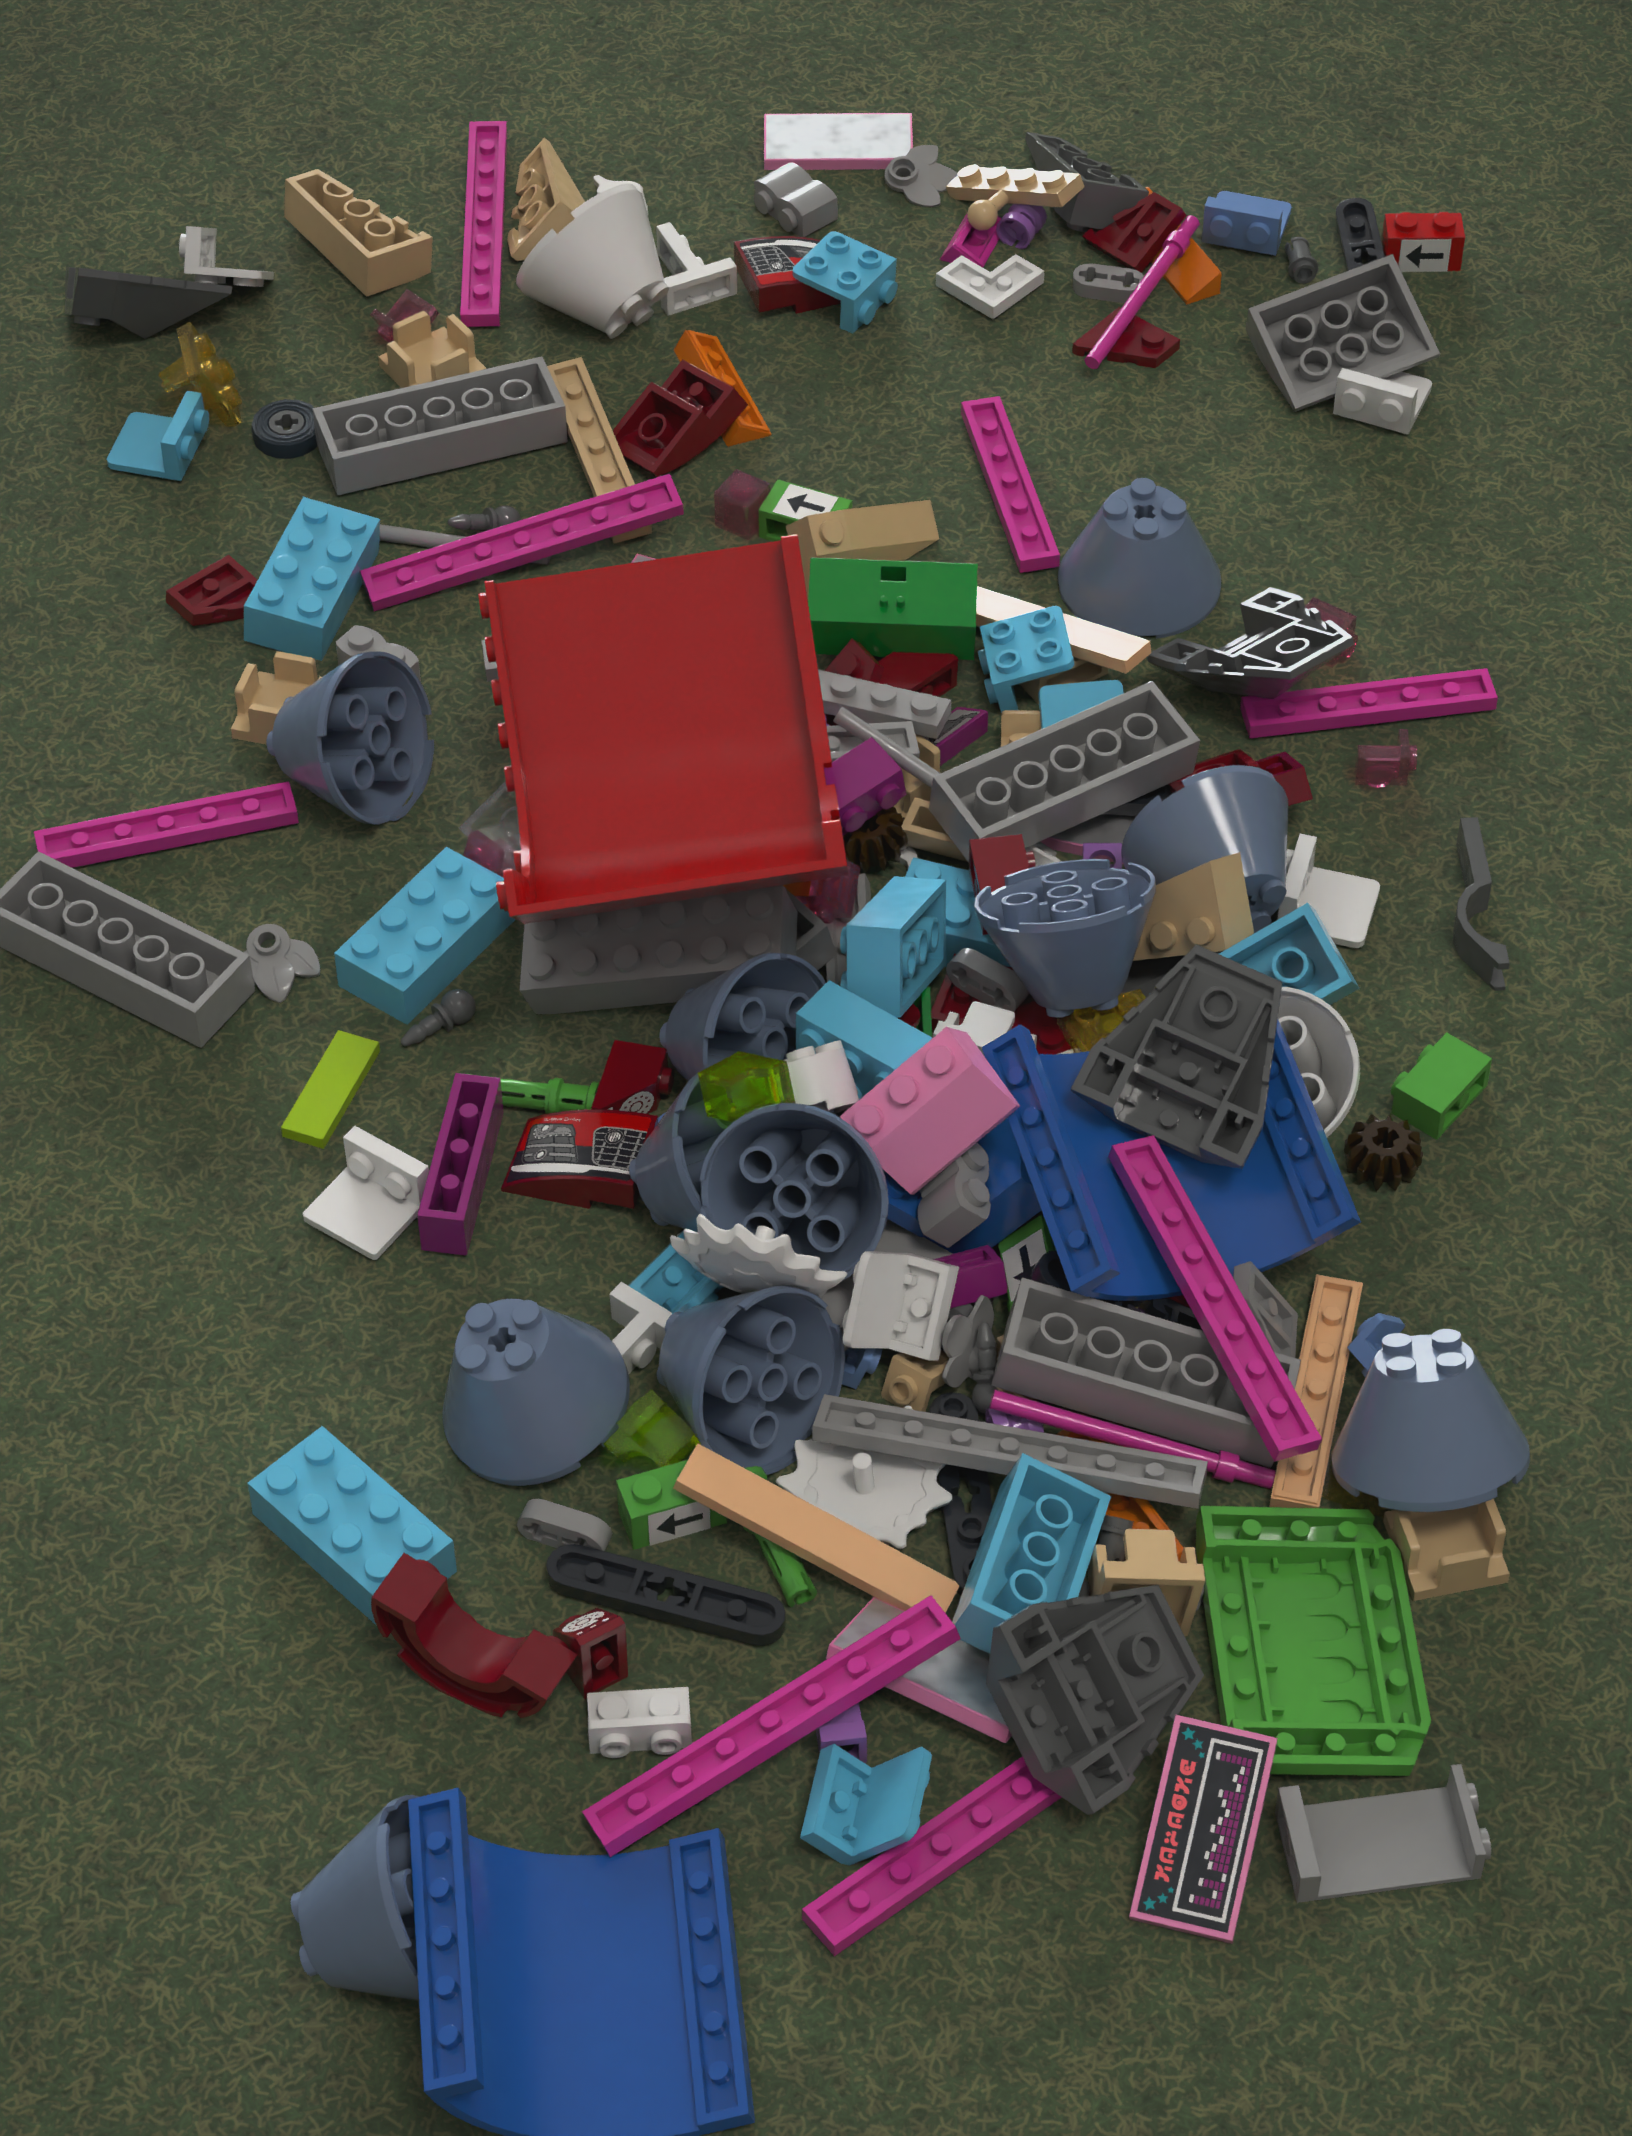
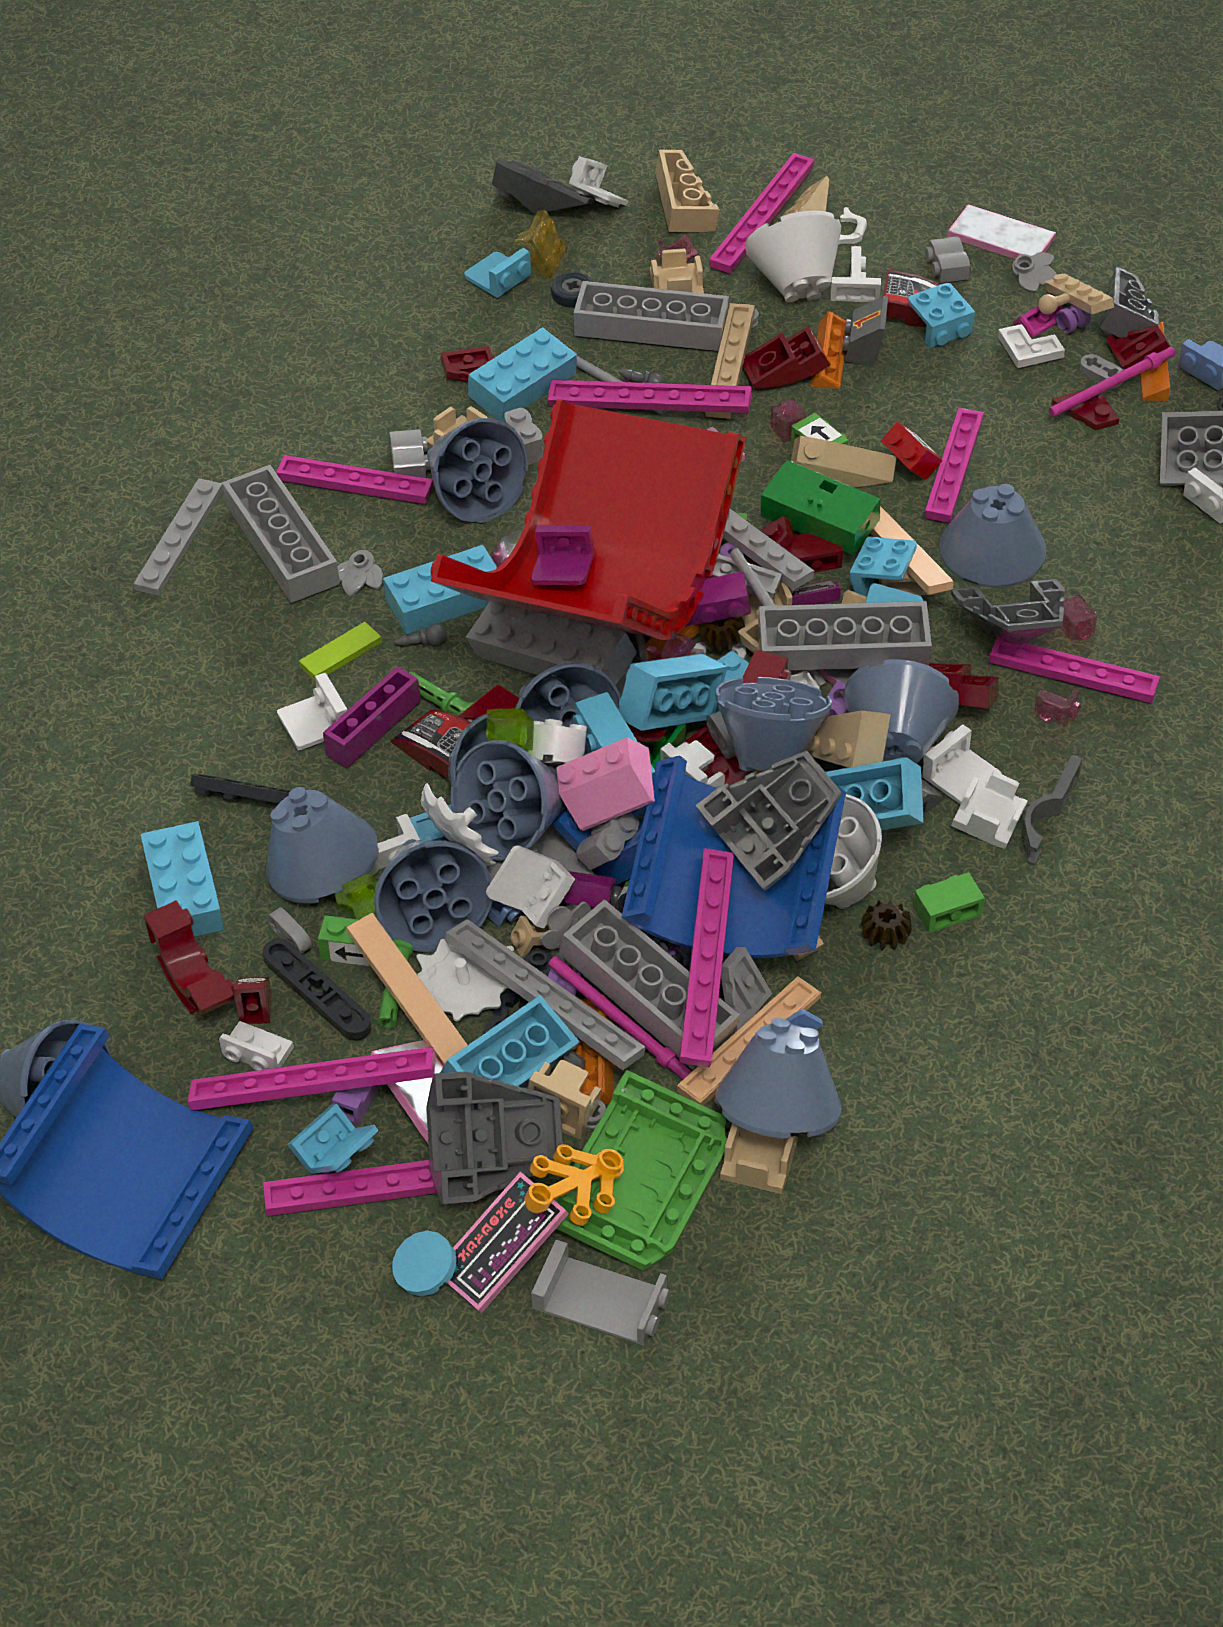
camera: 30 degrees right, 0 degrees up
(222, 757) = (408, 453): none -> light grey brick
(323, 1357) = (233, 789): none -> black piece
(601, 813) = (563, 554): none -> magenta bracket
(765, 339) = (865, 332): none -> dark grey slope
(945, 483) = (911, 450): none -> red brick
(1114, 1911) = (424, 1263): none -> medium azure tile
(1271, 1652) = (605, 1164): none -> light orange plant
(1404, 937) = (990, 809): none -> white panel

